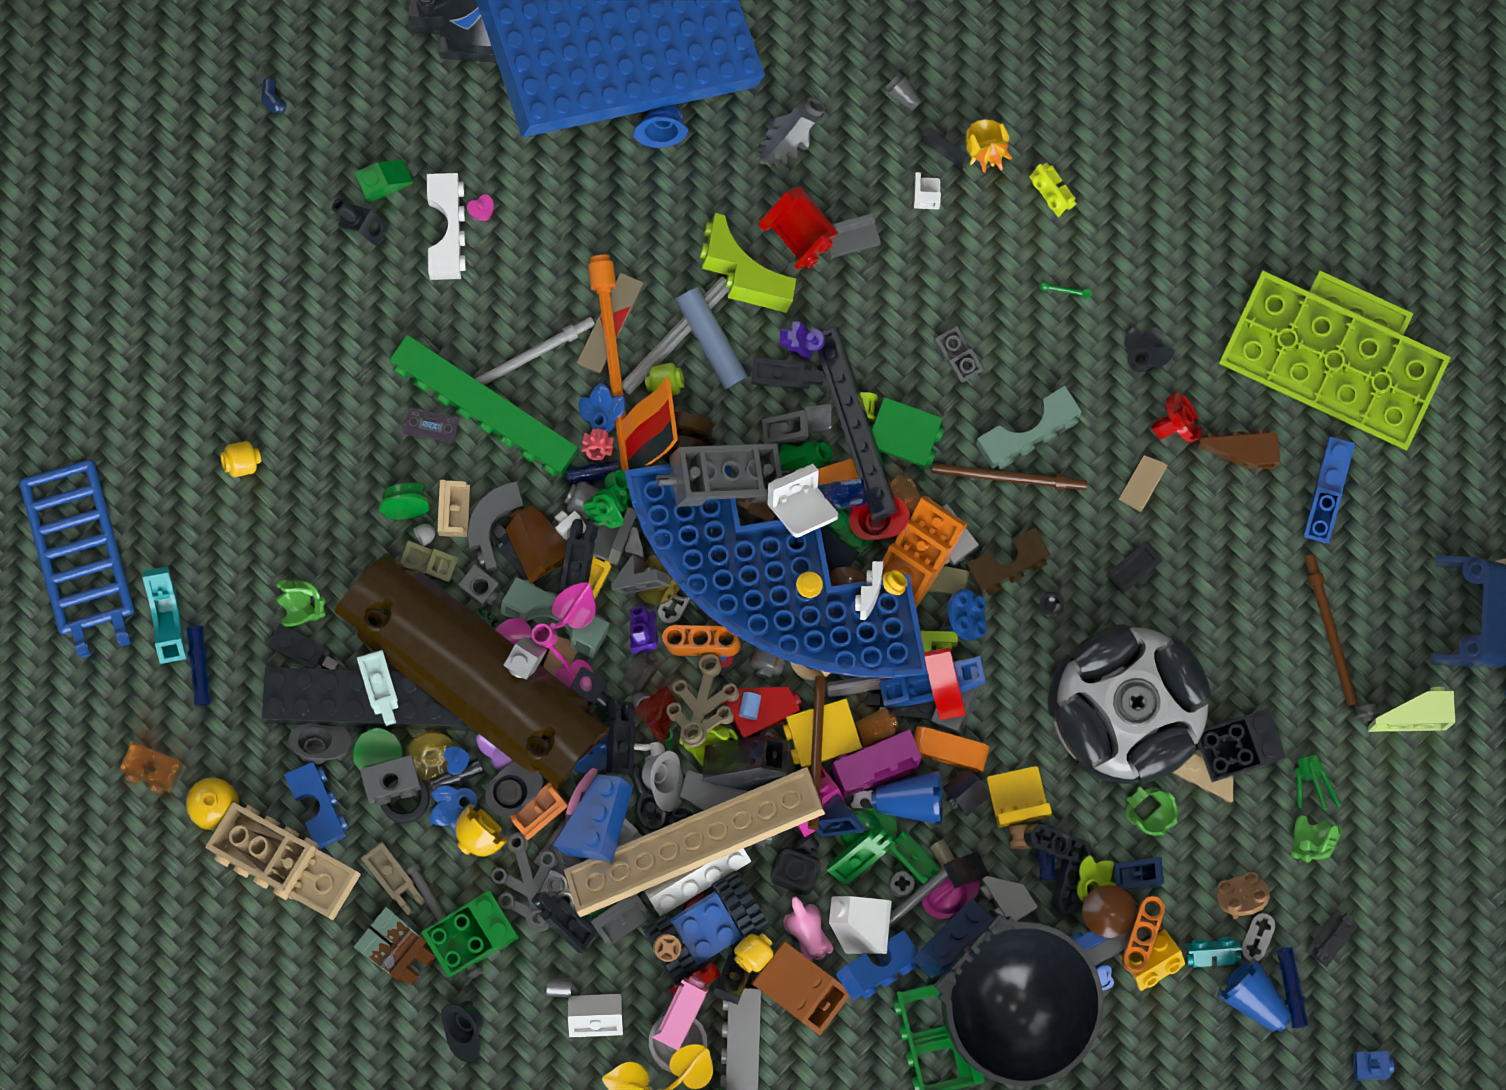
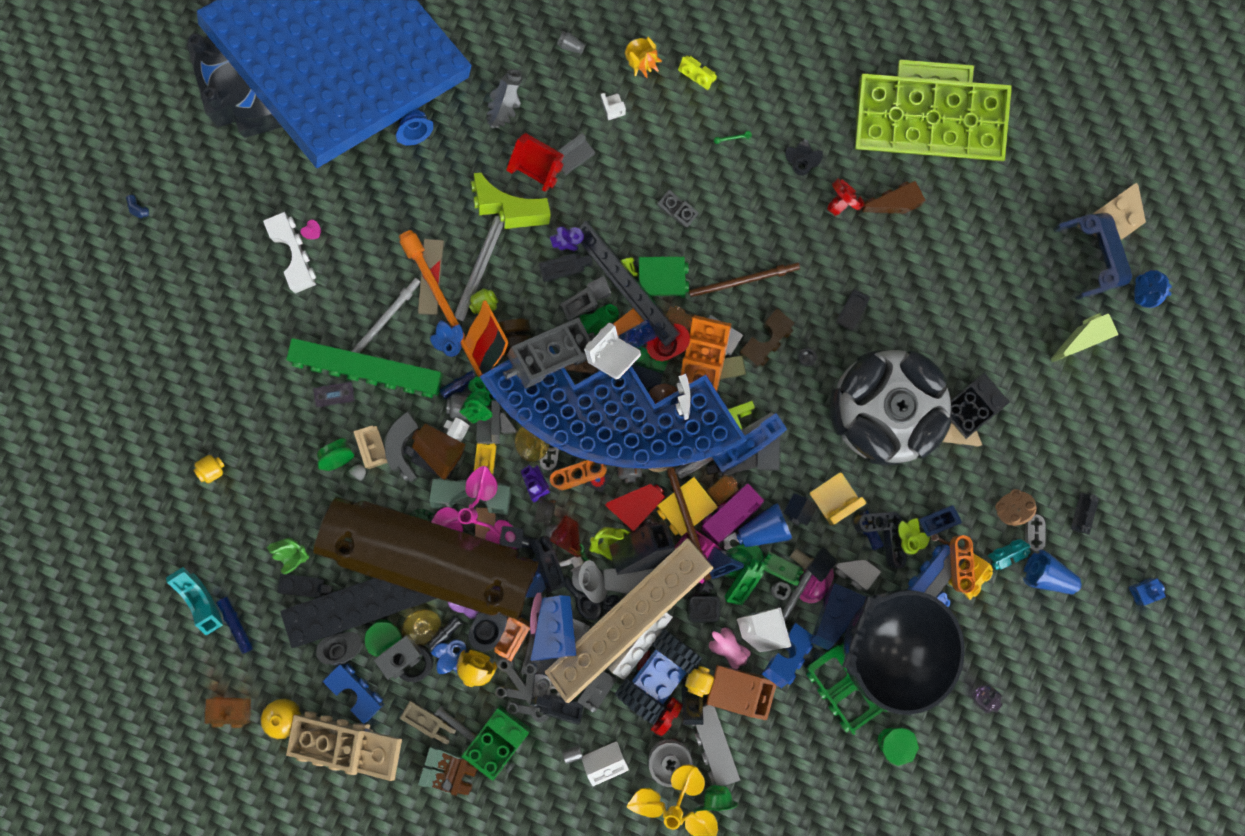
camera: 20 degrees left, 5 degrees up
(45, 554) = (163, 612): blue bar -> none
(359, 219) = (228, 270): black bracket -> none
(379, 685) = (364, 594): light aqua hinge -> none
(383, 179) = (234, 235): green slope -> none
(428, 561) = (368, 490): olive slope -> none
(456, 759) = (440, 624): blue piece -> none
(462, 1030) = (516, 810): black piece -> none
(477, 576) = (403, 490): dark grey brick -> none
(524, 658) = (459, 537): light grey brick -> none
(578, 554) = (470, 447): black hinge -> none
(597, 444) = (454, 364): coral gear -> none
(637, 578) = (517, 447): dark grey slope -> none
(669, 951) = (643, 710): medium nougat wheel -> none
(681, 1012) = (666, 748): bright pink window -> none
(703, 704) = (596, 520): dark tan plant -> none
(711, 338) = (504, 260): sand blue brick -> none
(750, 705) = (629, 508): medium blue hinge -> none
(809, 584) = (639, 408): yellow plate -> none
(894, 582) = (698, 384): yellow plate -> none
(944, 147) = (613, 70): black tile -> none
(945, 683) = (760, 442): slope -> none
(951, 749) = (778, 483): orange beam -> none
(967, 615) = (753, 386): blue plate -> none
(1001, 445) = (731, 259): sand green arch -> none
(1018, 837) = (847, 525): medium nougat wheel -> none
(1108, 911) = (931, 556): reddish brown dish -> none
(1143, 483) = (836, 250): tan slope -> none
(1159, 820) = (938, 477): bright green helmet -> none
(1293, 991) = (1077, 566): clear blue pin -> none
(1312, 770) = (1026, 403): green plant -> none
(1316, 581) = (979, 273): reddish brown bar -> none
(1317, 838) = (1049, 449): bright green helmet -> none
(1328, 490) = (963, 207): blue slope -> none
(1367, 713) = (1049, 350): dark grey plate -> none

